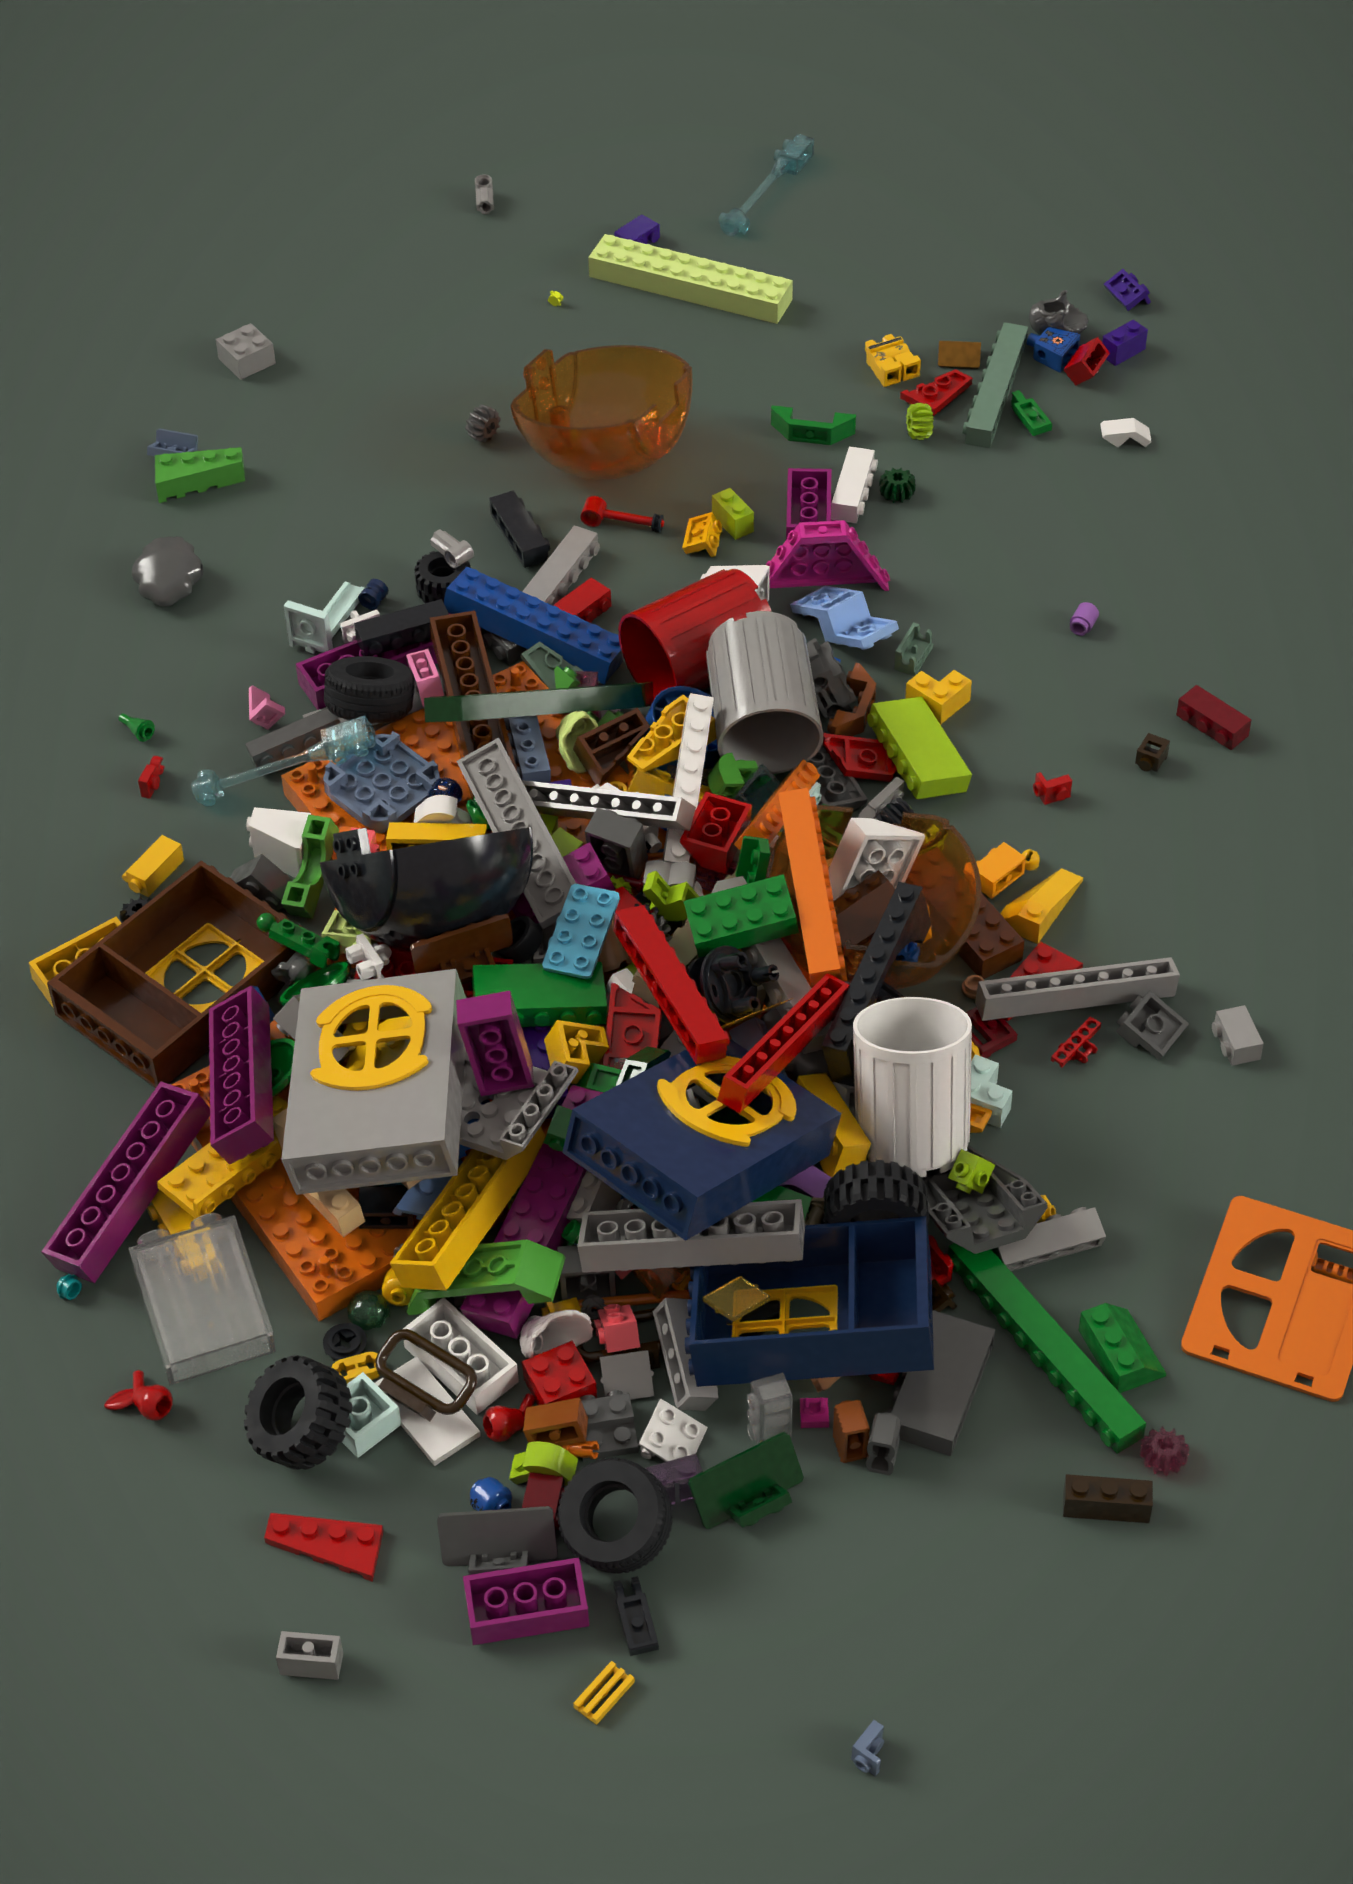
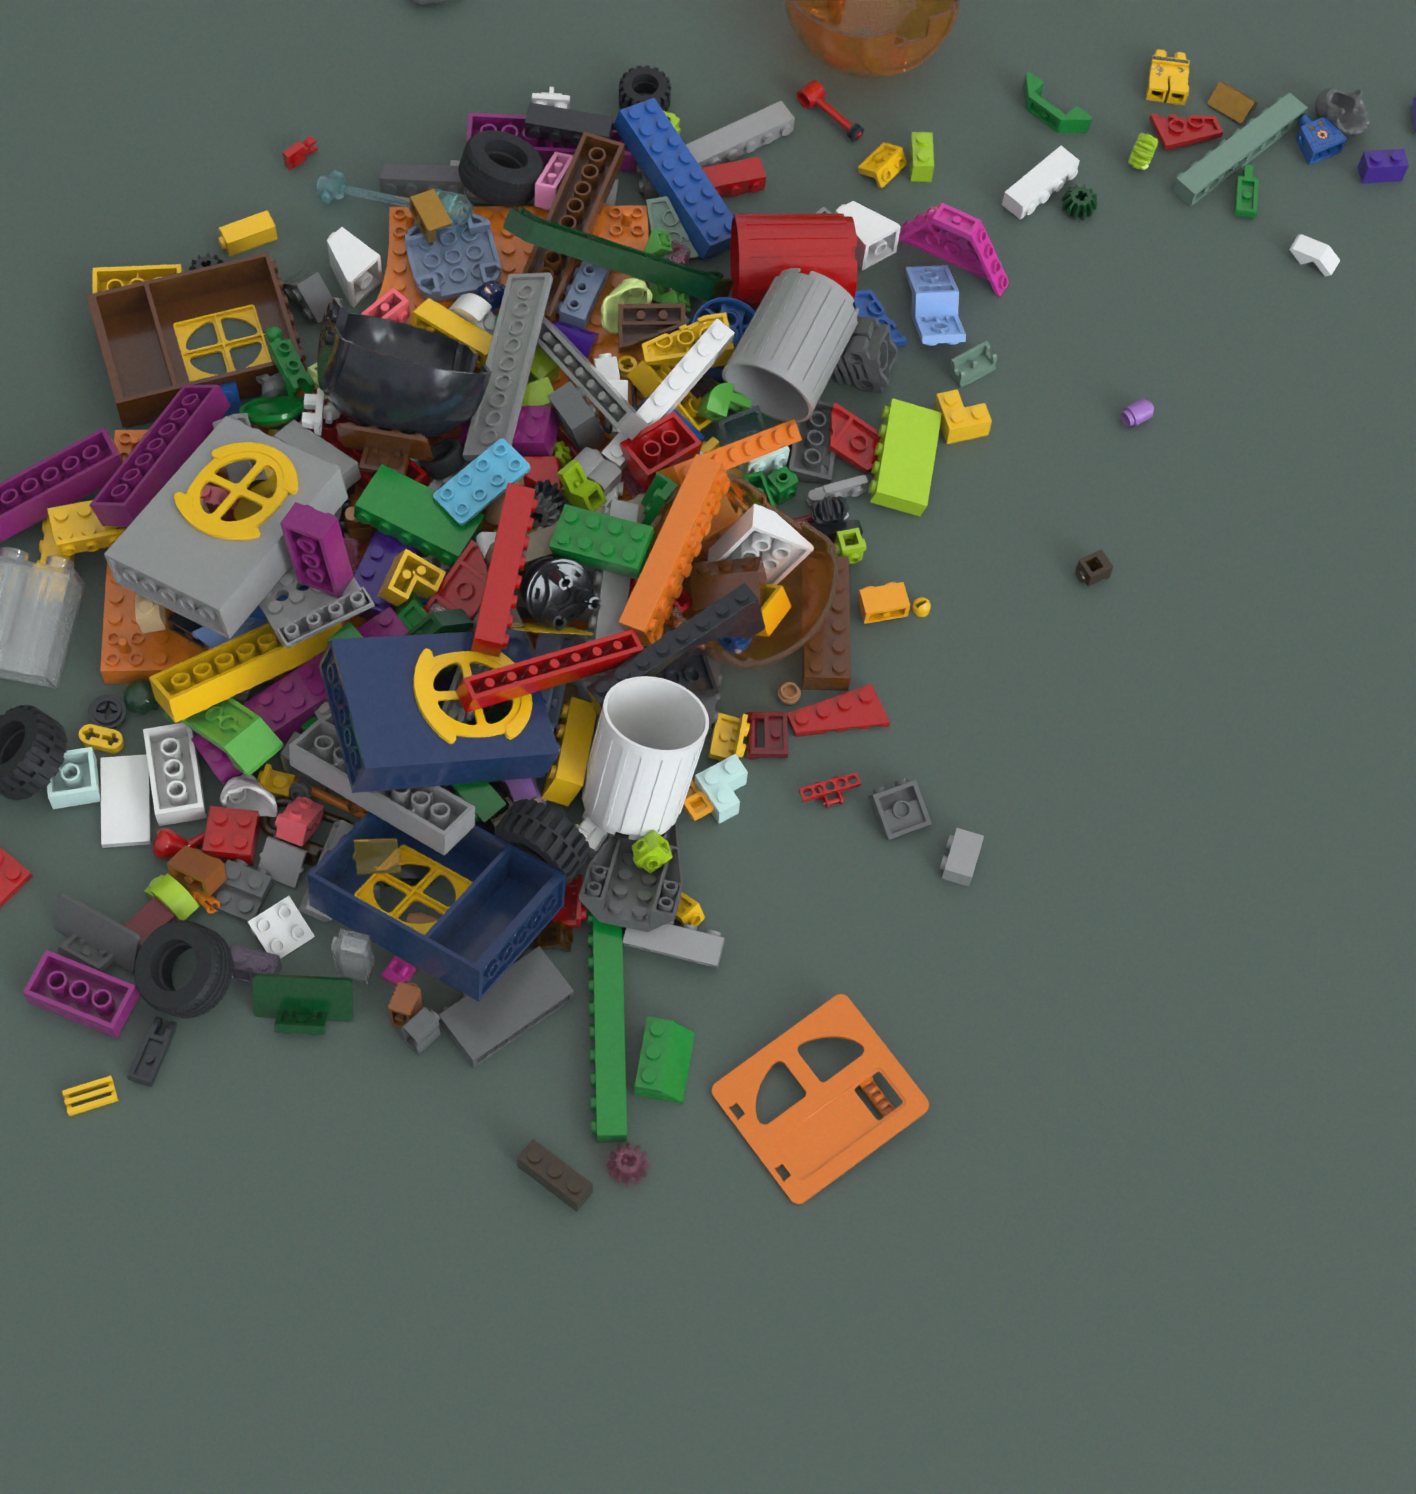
camera: 25 degrees right, 15 degrees up
(141, 728) = (322, 106): green cone -> none
(262, 709) = (422, 136): bright pink bracket -> none
(304, 891) = (369, 286): bright green arch -> none
(316, 627) = (512, 92): light aqua bracket -> none
(338, 751) = (429, 214): none -> pearl gold panel
(373, 594) = (582, 78): dark blue wheel -> none
(410, 1394) = (113, 783): dark brown bar -> none
(454, 551) = (661, 76): light grey piece -> none
(490, 1495) = (118, 898): blue head -> none
(519, 529) = (737, 79): black brick -> none
(808, 496) = (985, 182): magenta brick -> none
(865, 688) = (866, 404): dark orange slope -> none
(867, 1747) = (239, 1253): sand blue bracket -> none
(1039, 907) = (892, 653): yellow wedge -> none
(1052, 790) = (987, 556): red bracket -> none
(1075, 988) = (860, 744): light grey brick -> none
(1086, 361) = (1333, 168): red brick -> none
(1213, 717) = (1172, 564): dark red brick -> none

